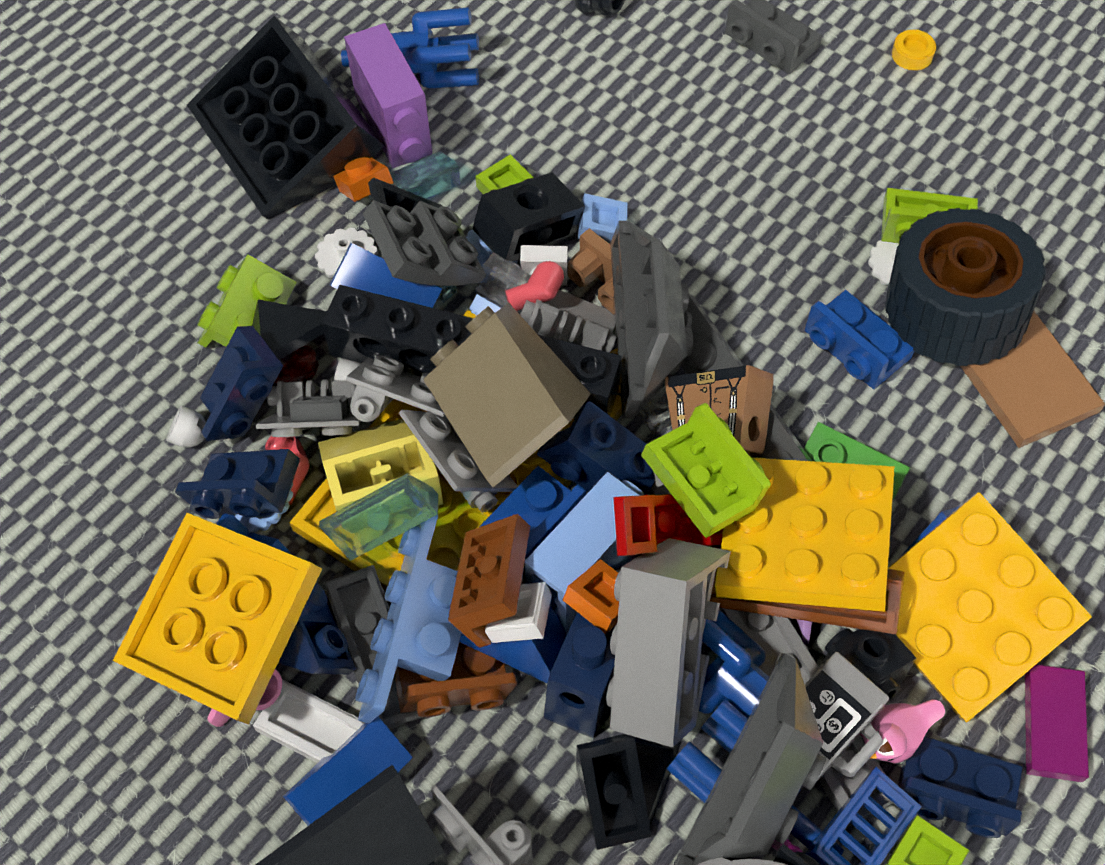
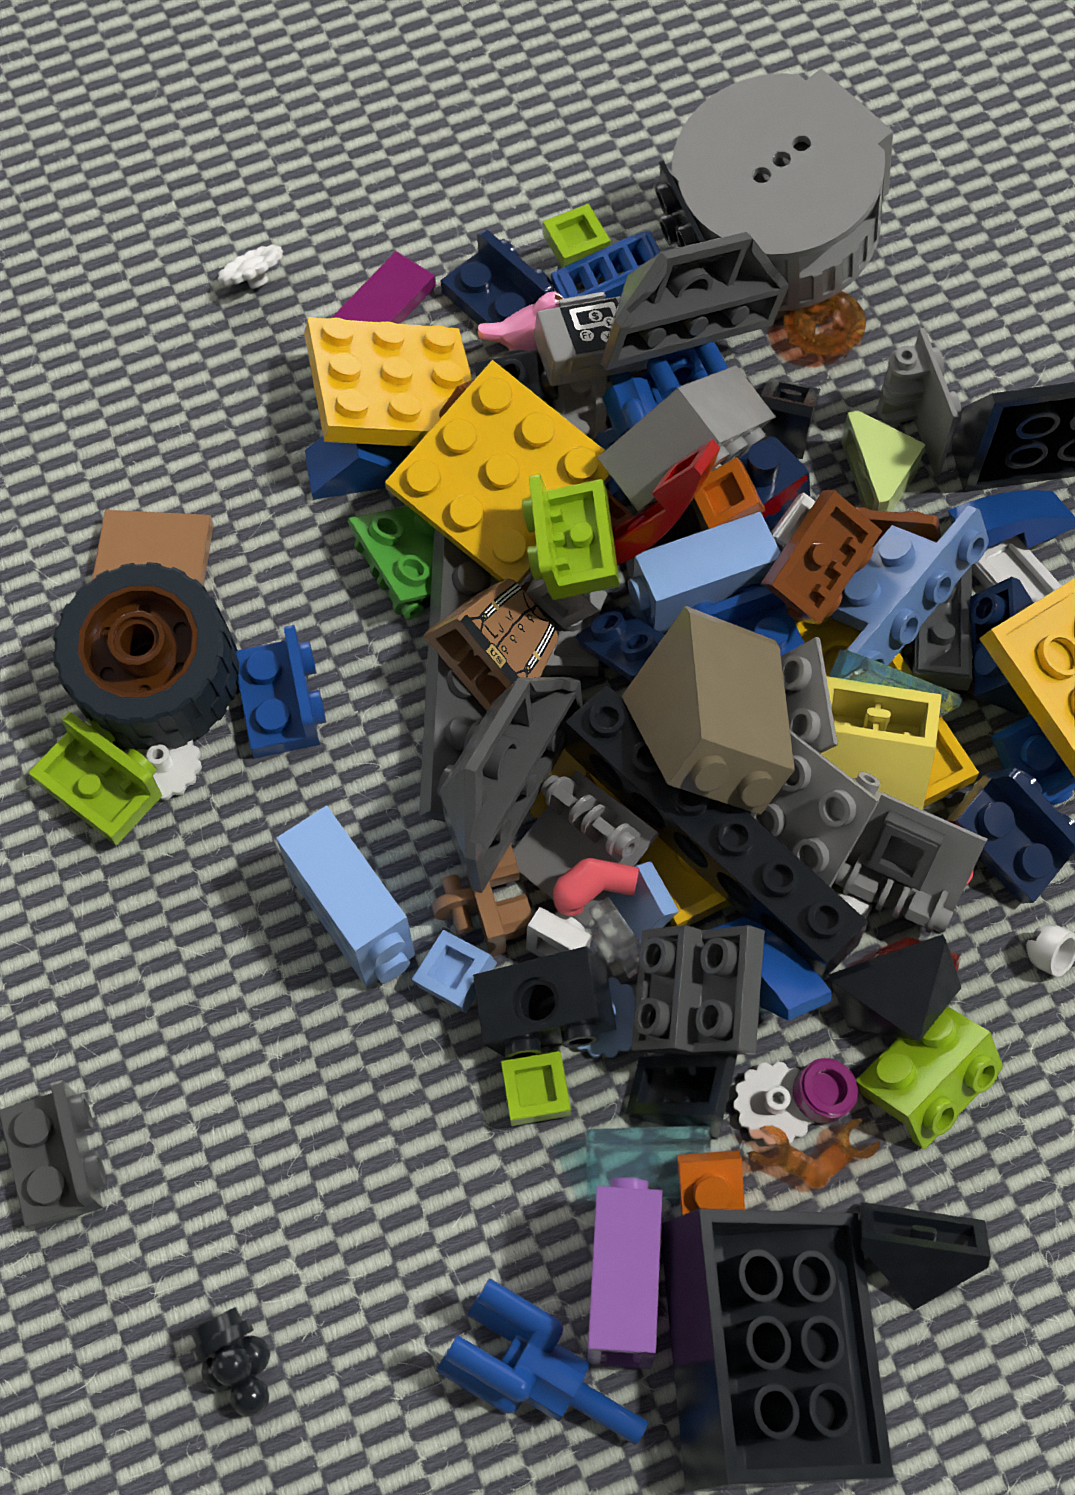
camera: 150 degrees left, 5 degrees up
(213, 215) = (922, 1250): none -> black slope
(239, 385) = (977, 935): dark blue bracket -> none
(314, 268) = (825, 1090): none -> magenta tile
(330, 219) = (812, 1171): none -> clear orange arm
(495, 775) = (880, 460): none -> yellowish green slope
(699, 206) = (348, 897): none -> light blue brick

